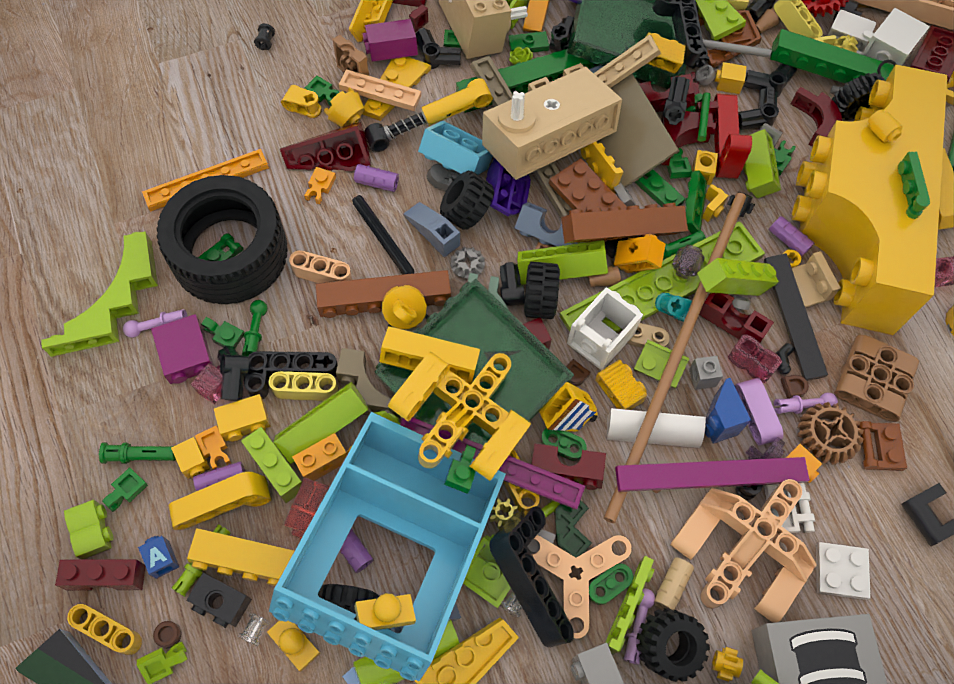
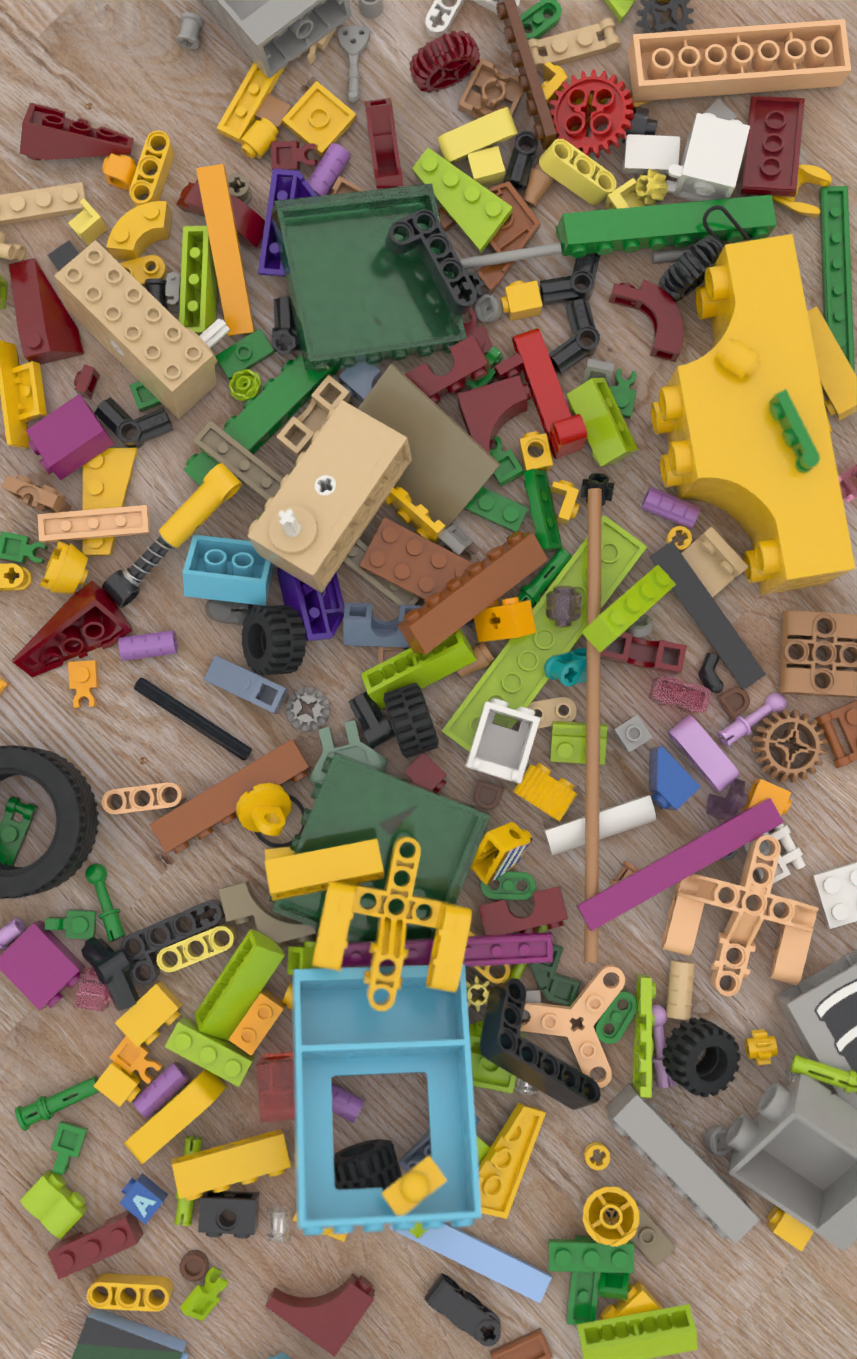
camera: 20 degrees left, 20 degrees up
(460, 474) = (419, 997): green plate -> none
(628, 62) = (387, 370): tan plate -> none
(671, 54) = (425, 319): yellow brick -> none
(675, 104) = (471, 392): black piece -> none
(702, 132) = (511, 390): green bar -> none

